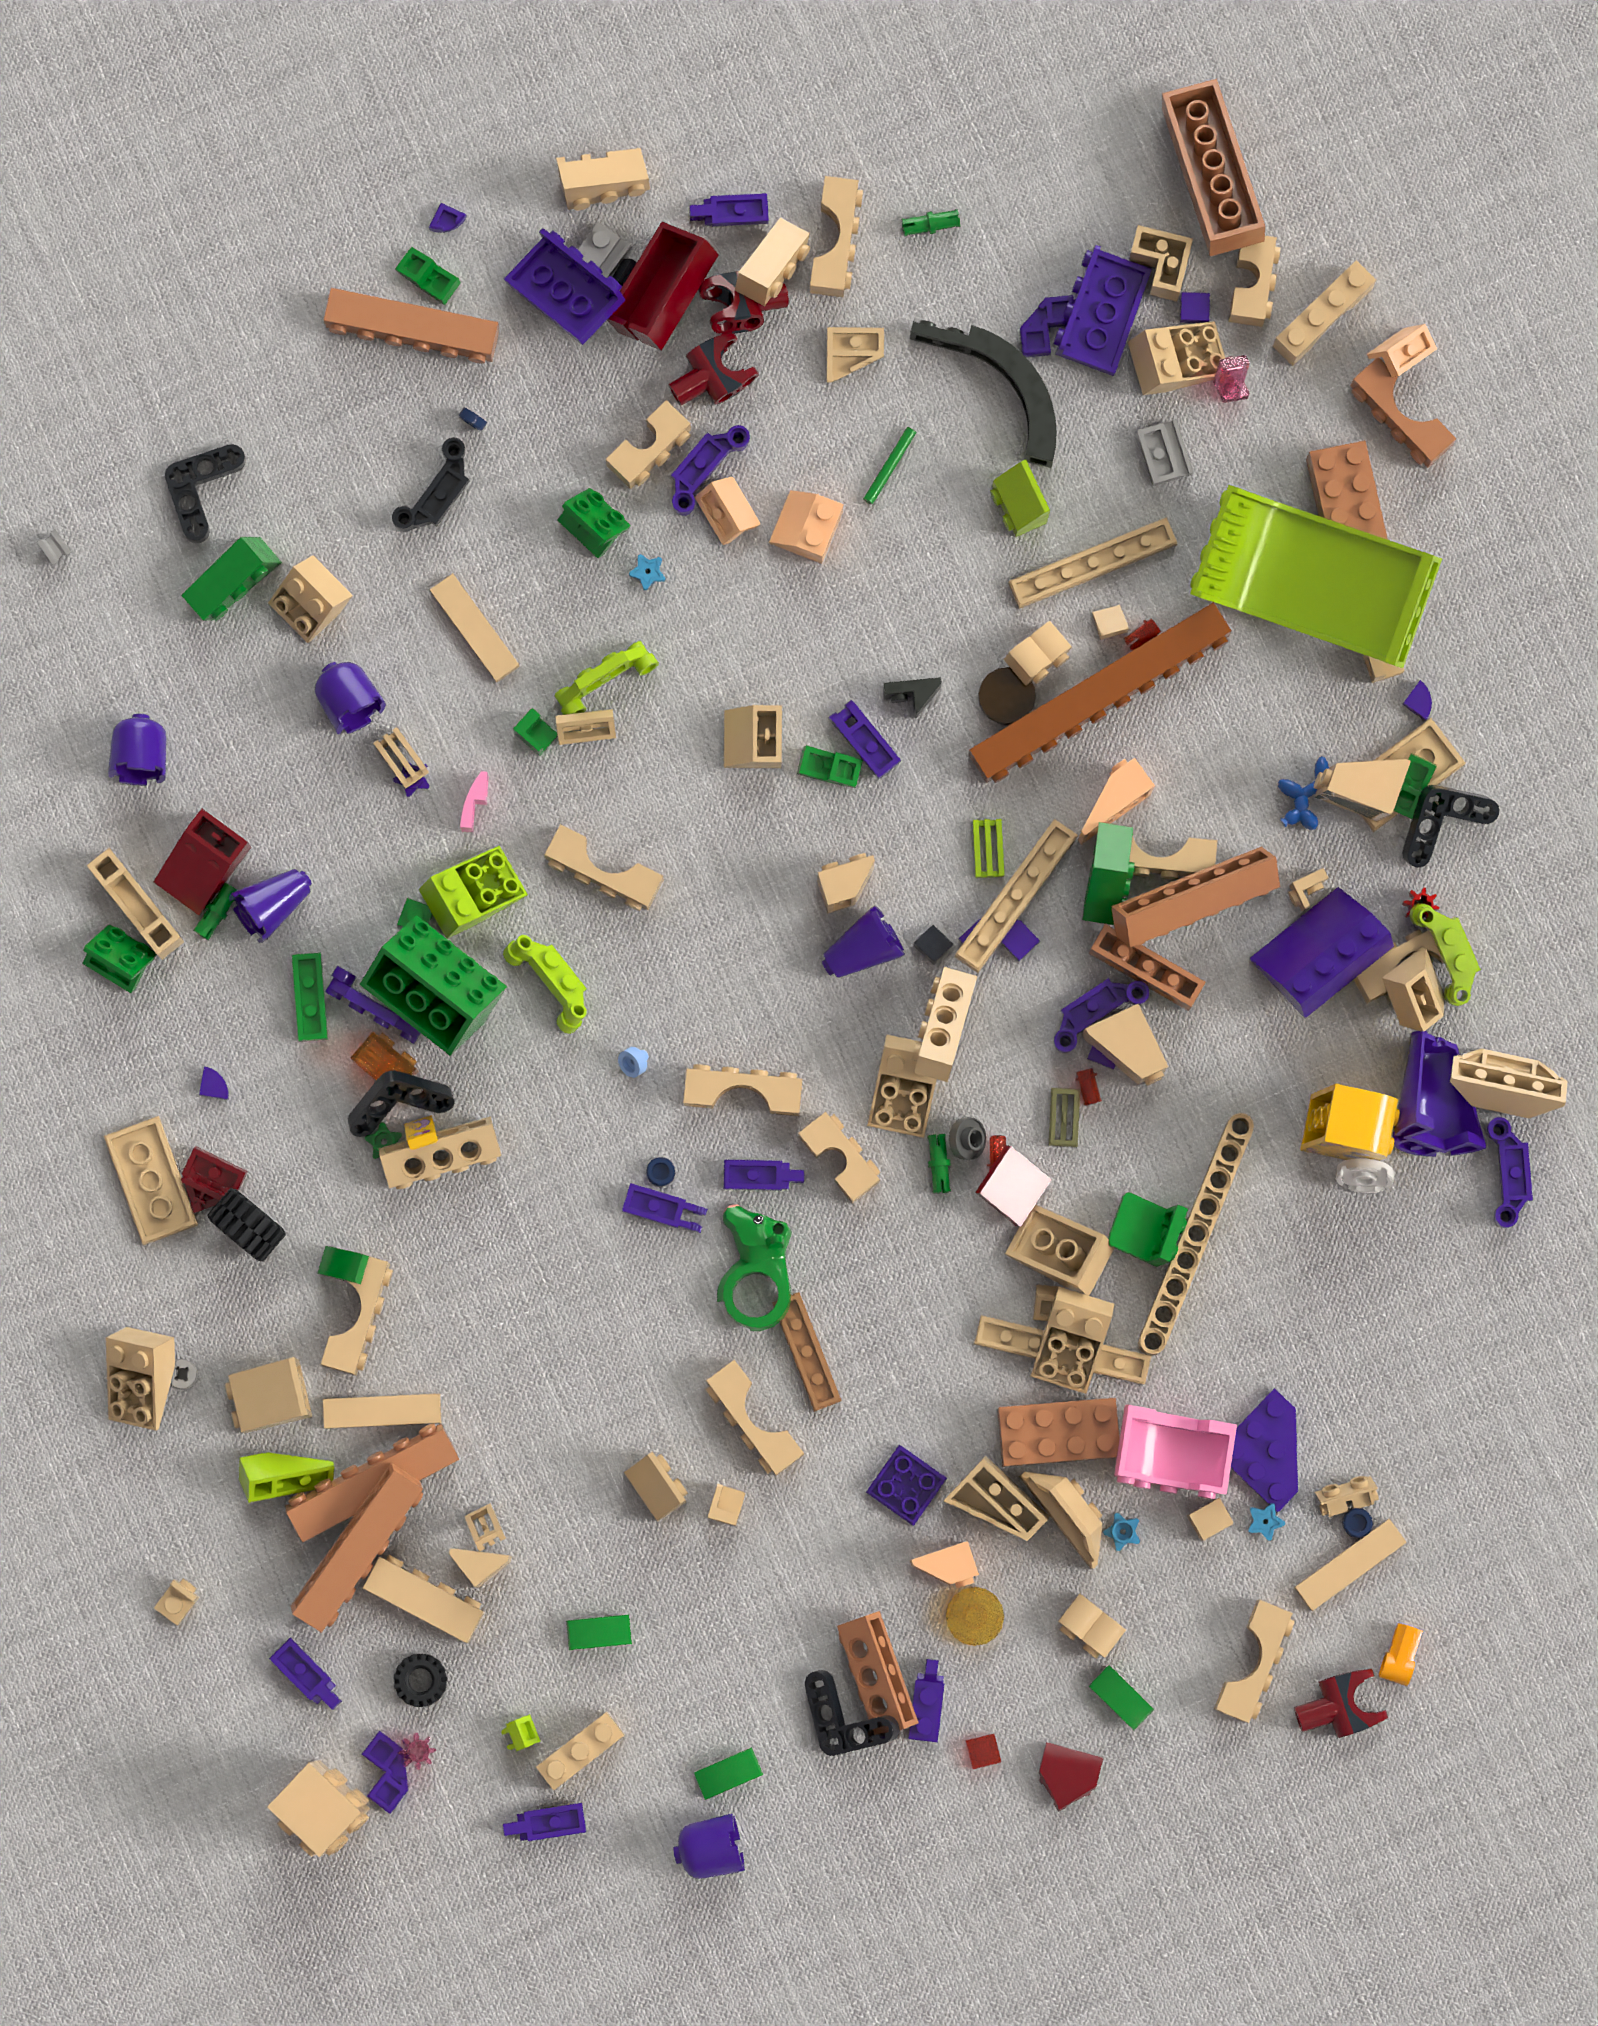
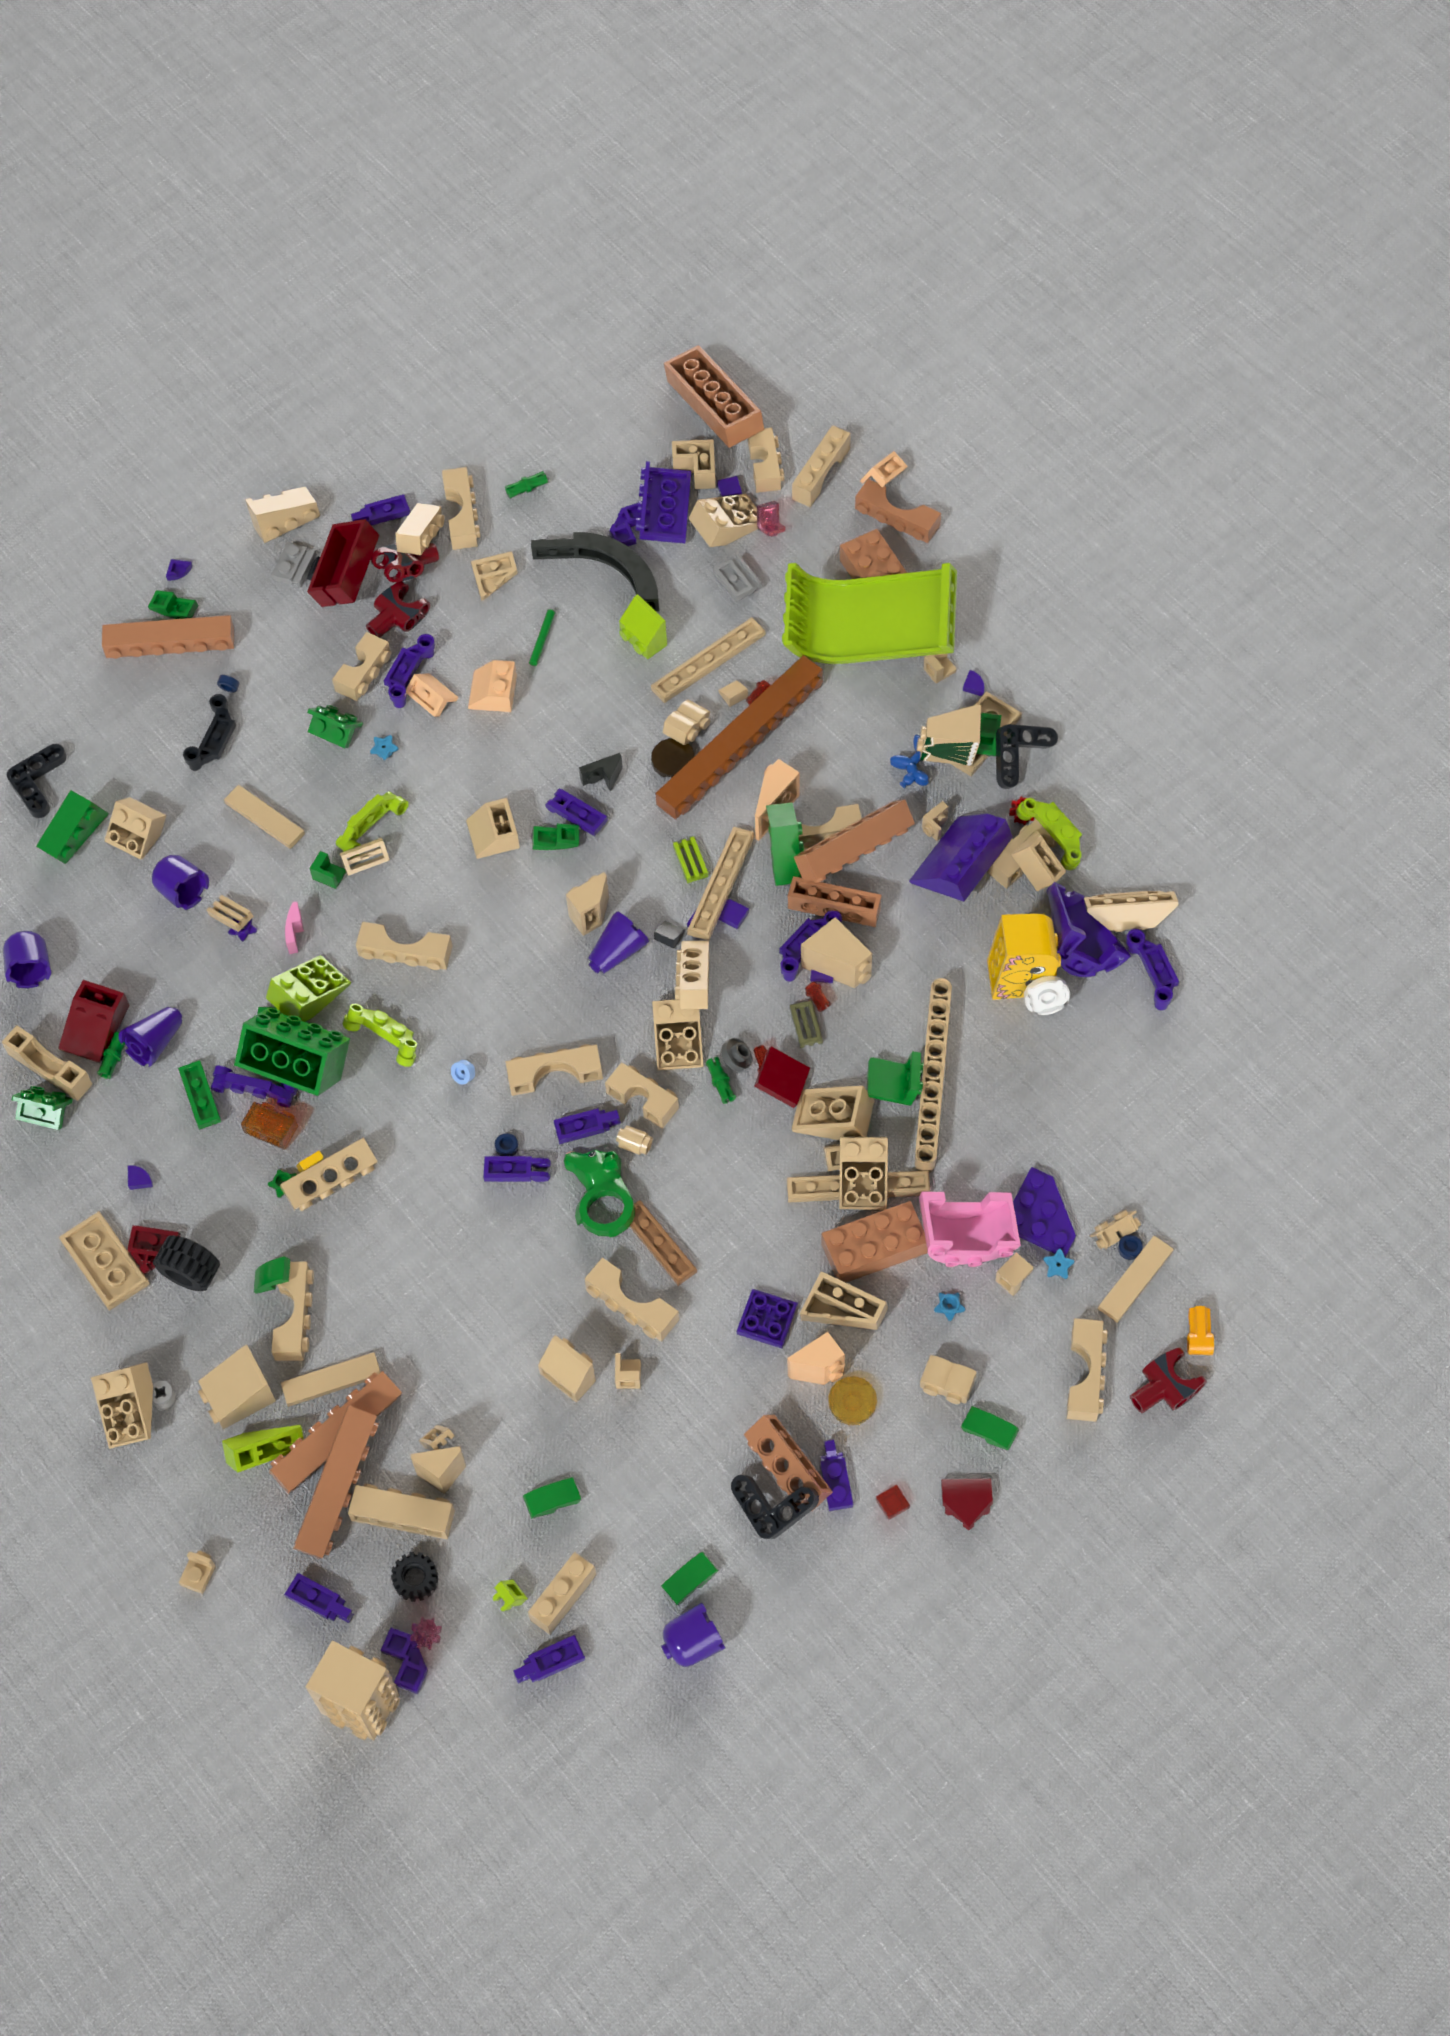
camera: 10 degrees left, 20 degrees down
(393, 1088) = (279, 1139): black beam -> none
(565, 286) = (274, 580): dark purple bracket -> none
(813, 1214) = (634, 1140): none -> tan brick
(1069, 1512) = (903, 1299): tan wedge -> none

